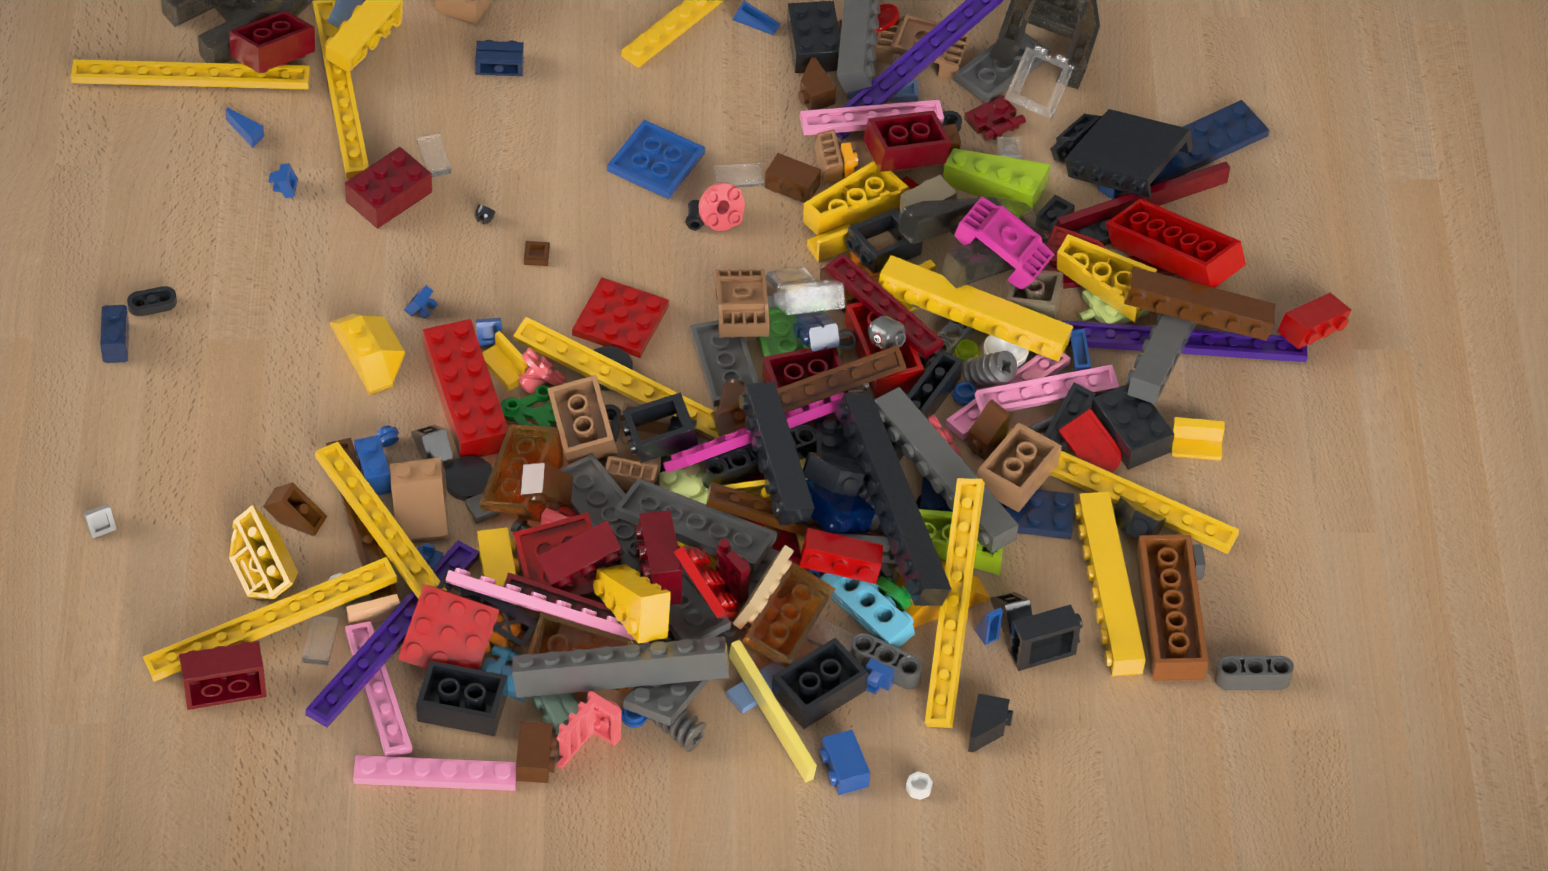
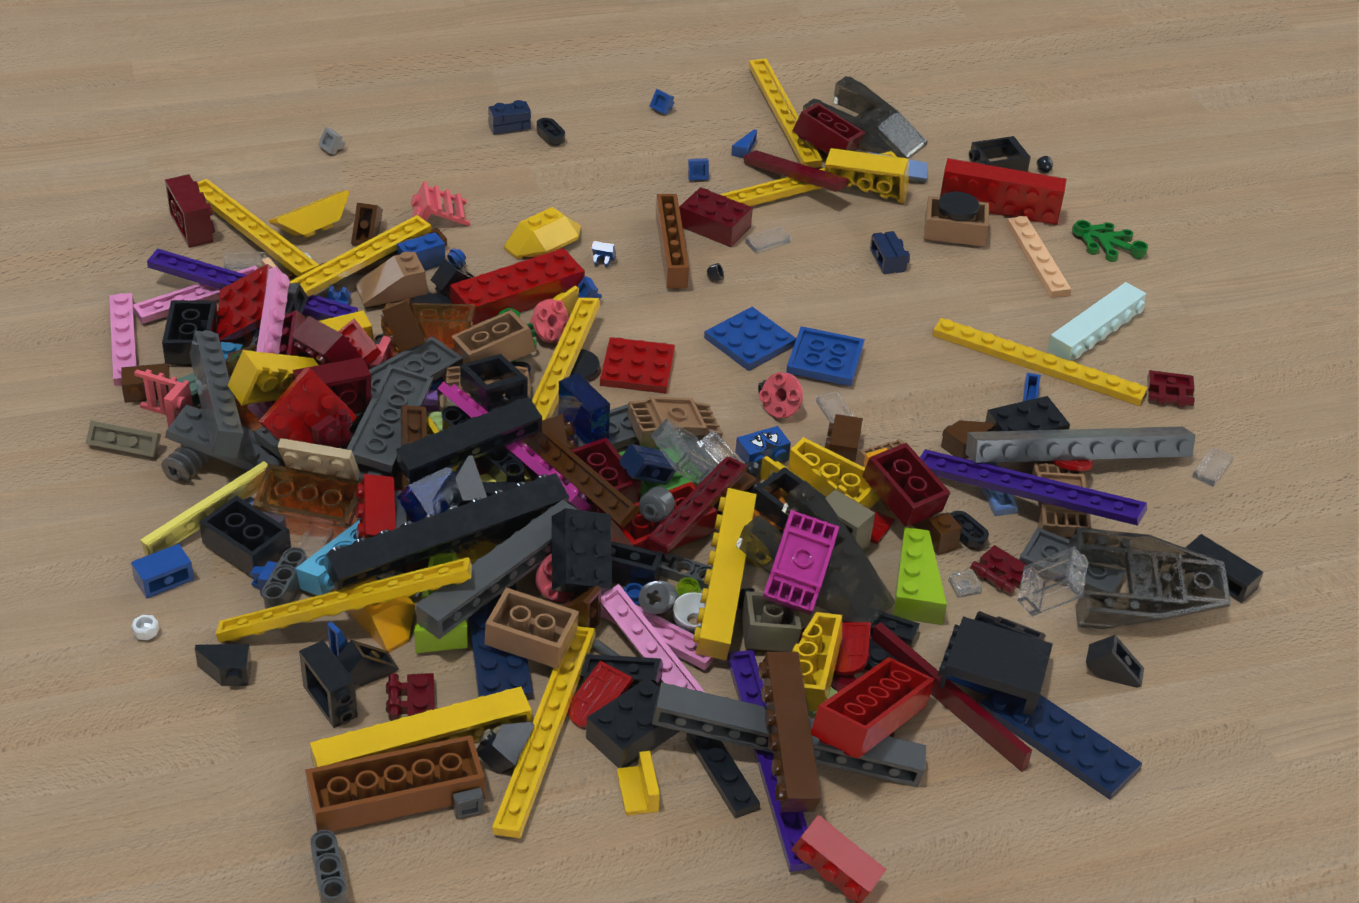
camera: 75 degrees right, 10 degrees down
(130, 181) = (662, 101): none -> blue tile
(280, 439) = (428, 202): none -> coral plate
(328, 93) = (796, 170): none -> dark red tile
(426, 234) = (672, 241): none -> dark orange brick
(537, 253) = (688, 308): reddish brown tile -> none
(603, 214) = (750, 338): none -> blue plate
(626, 781) = (123, 439): none -> dark tan plate
(721, 361) = (585, 408): none -> clear blue brick
(789, 243) = (763, 443): none -> blue brick
(816, 261) = (753, 469): none -> black hinge
(856, 118) = (961, 498): bright pink plate -> none
(946, 401) = (581, 550): none -> black brick
(1056, 580) = (419, 695): none -> dark red plate
(1079, 350) = (715, 669): blue piece -> none
(1130, 79) = (1114, 662): none -> black slope
(1202, 378) = (724, 775): none -> black plate

